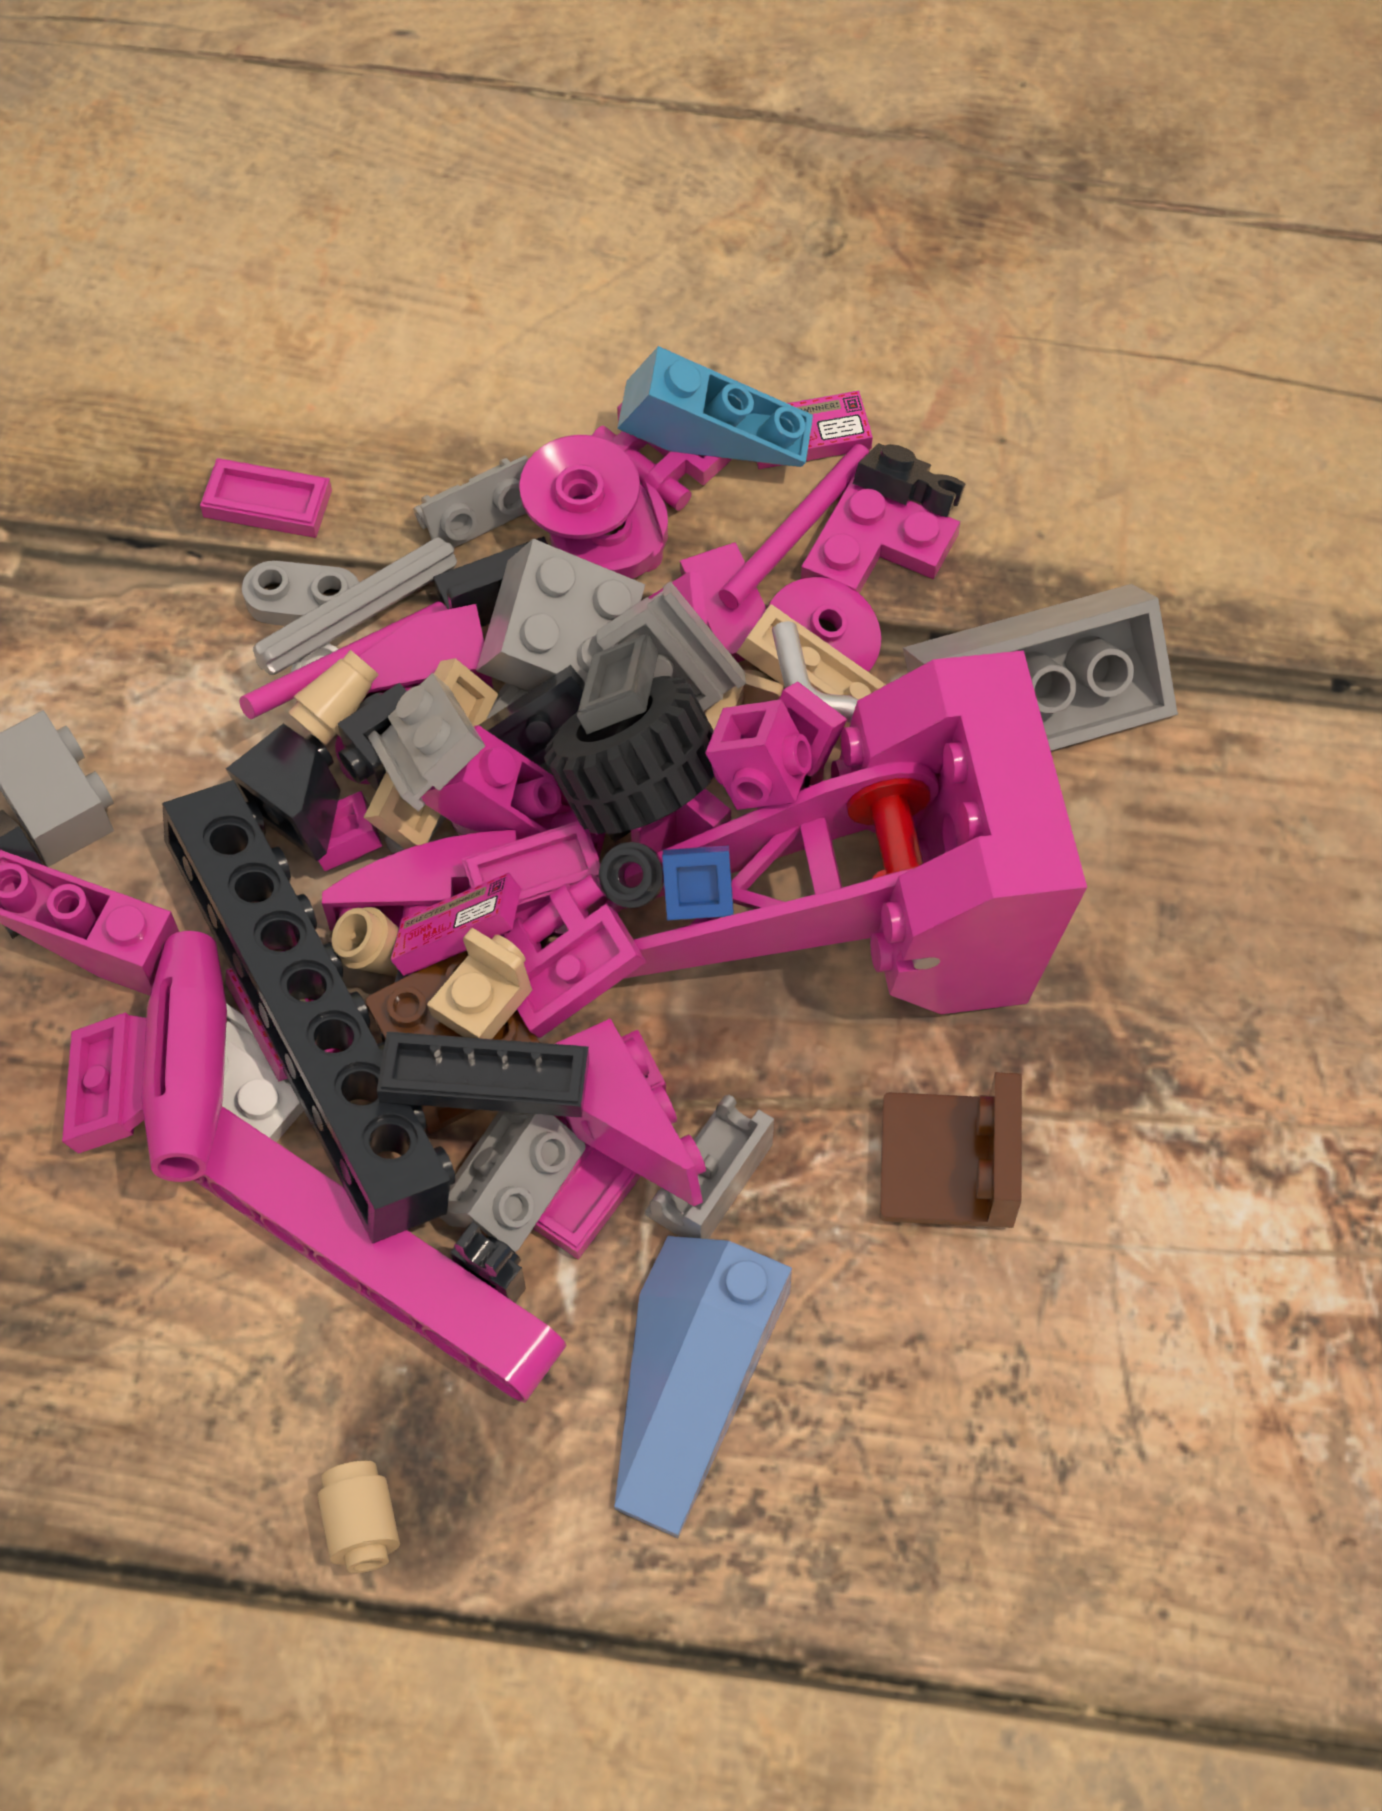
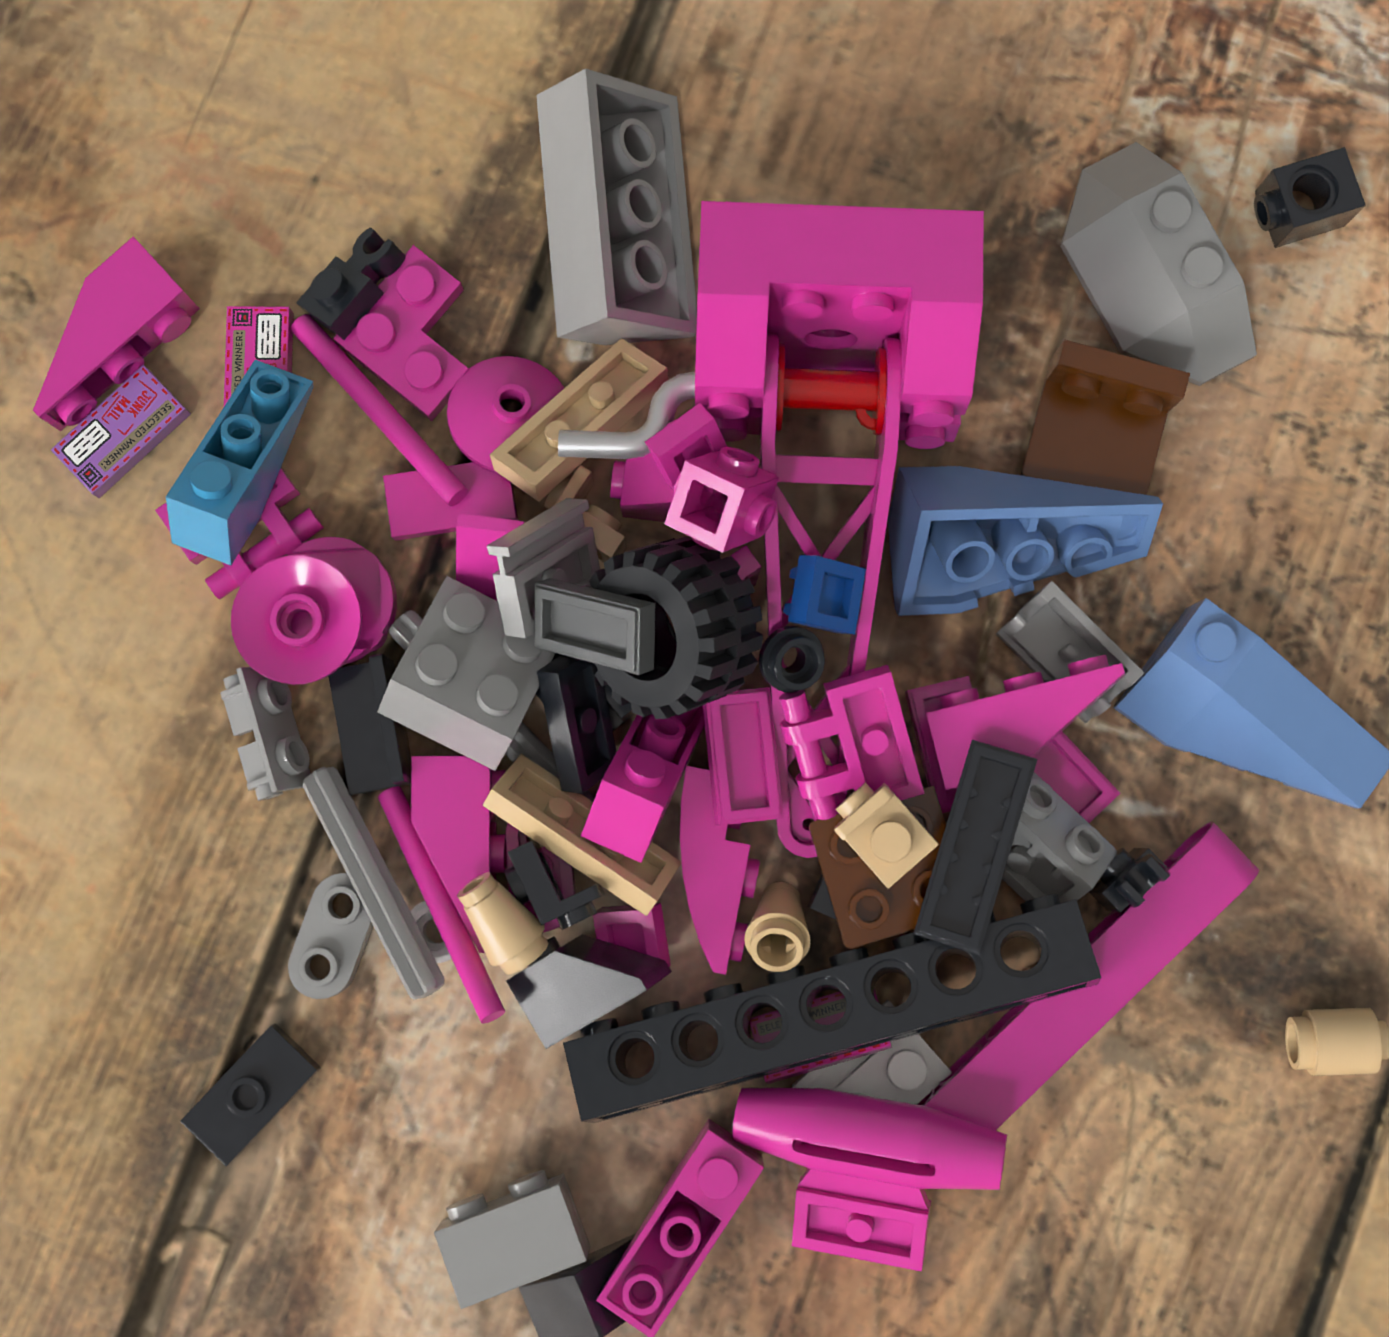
camera: 75 degrees left, 20 degrees up
(148, 560) = (250, 1094): none -> black plate
(266, 497) = (200, 955): dark pink tile -> none
(426, 740) = (599, 836): light grey plate -> none
(440, 929) = (797, 843): dark pink tile -> none
(724, 339) = (120, 431): none -> tile
(812, 307) = (115, 323): none -> dark pink slope
(814, 1069) = (986, 532): none -> medium blue wedge
(1131, 1180) = (1157, 267): none -> light grey wedge
(1255, 1344) = (1328, 183): none -> black brick

